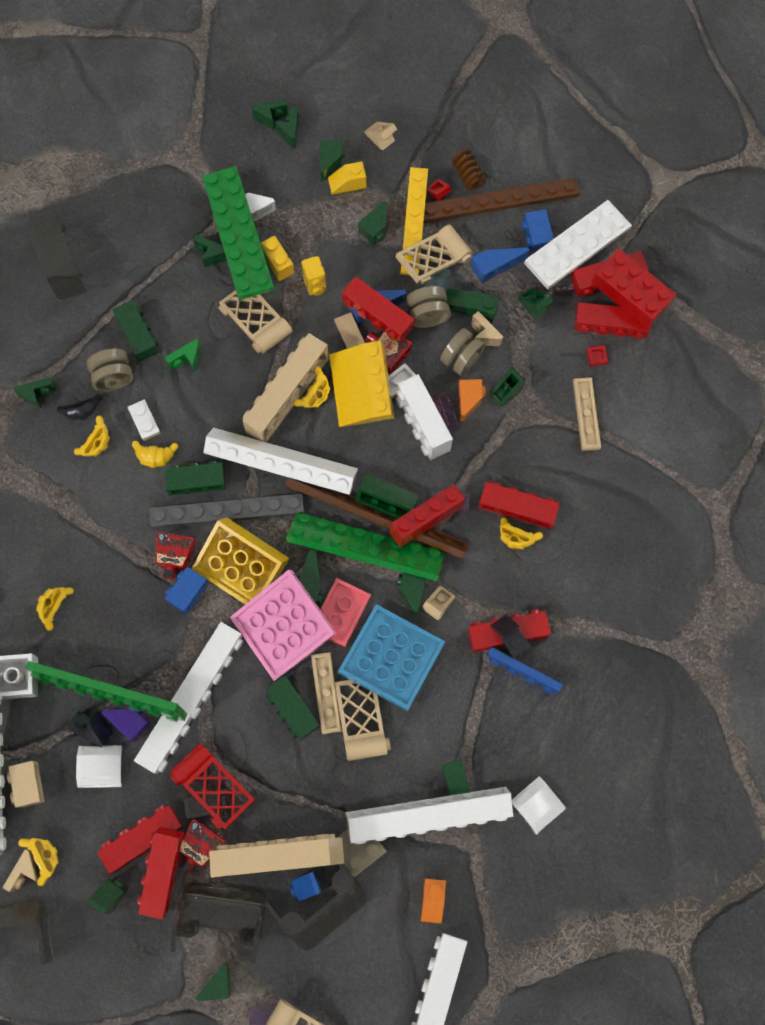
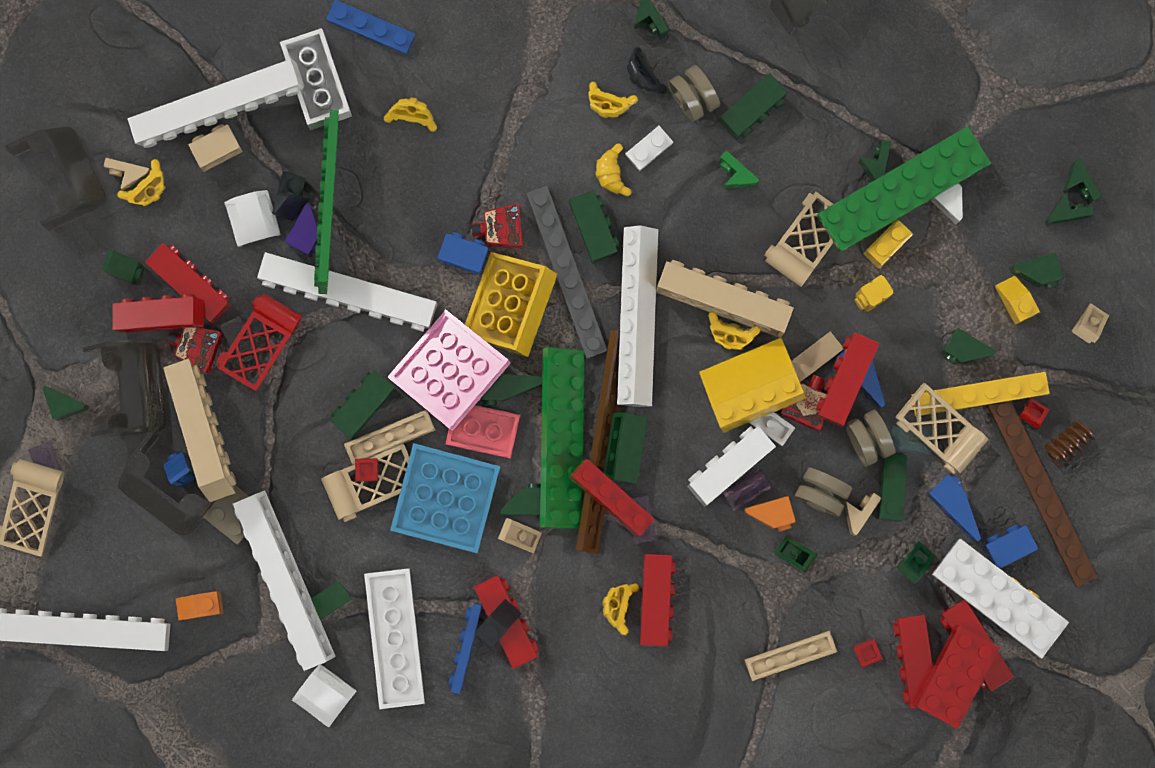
camera: 75 degrees right, 10 degrees up
(350, 718) = (366, 469): none -> red tile
(501, 730) = (394, 638): none -> white plate

